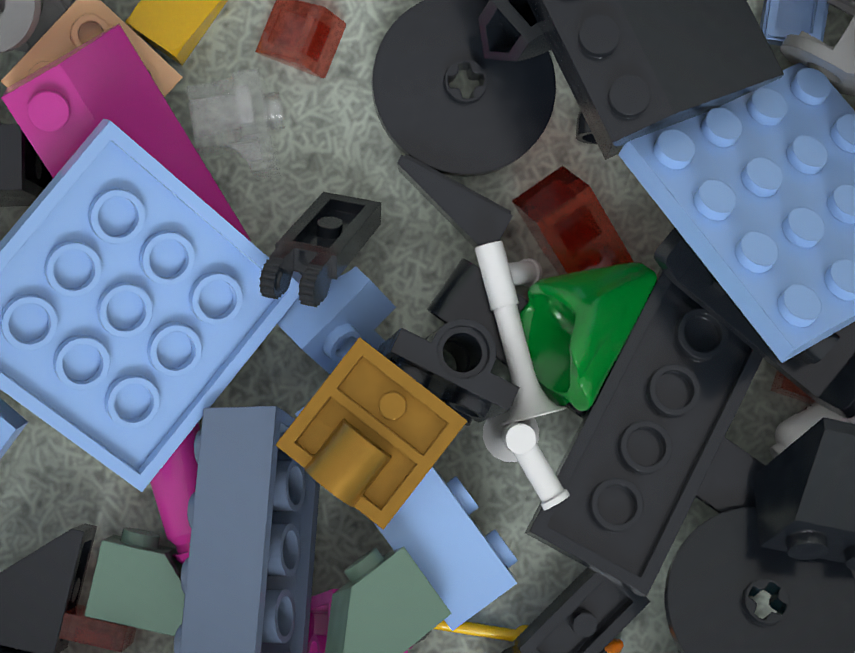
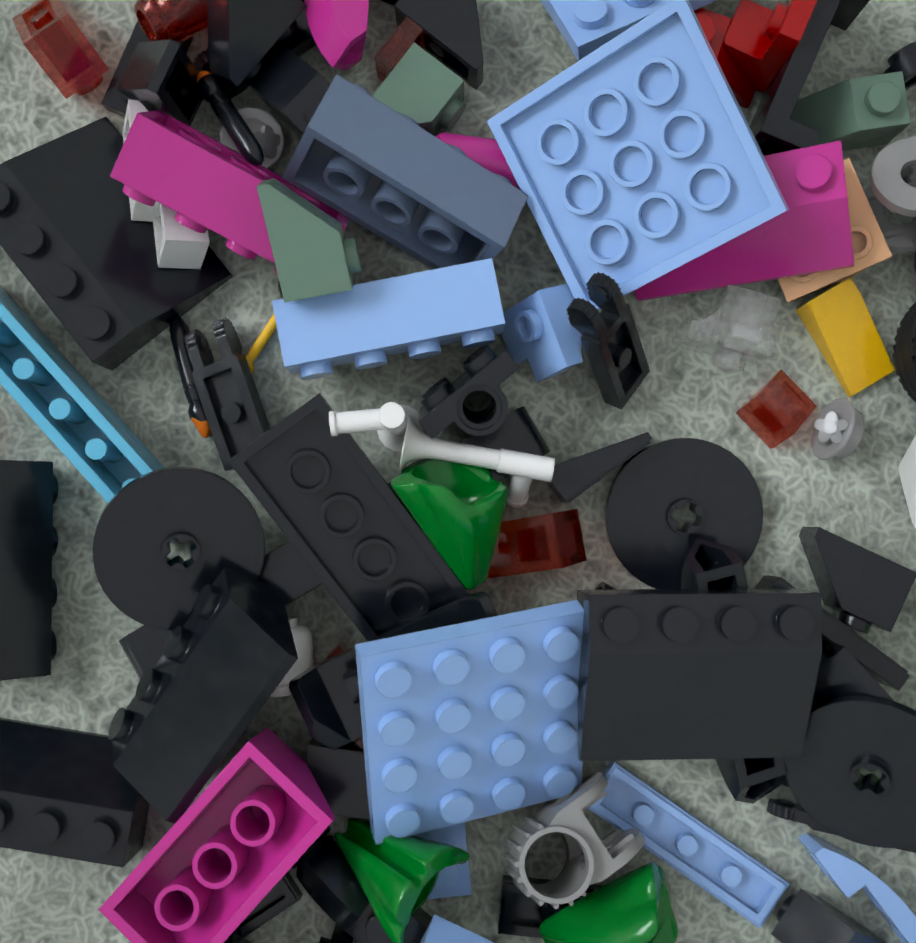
camera: 115 degrees right, 0 degrees up
(371, 433) = (450, 304): pearl gold plate -> none

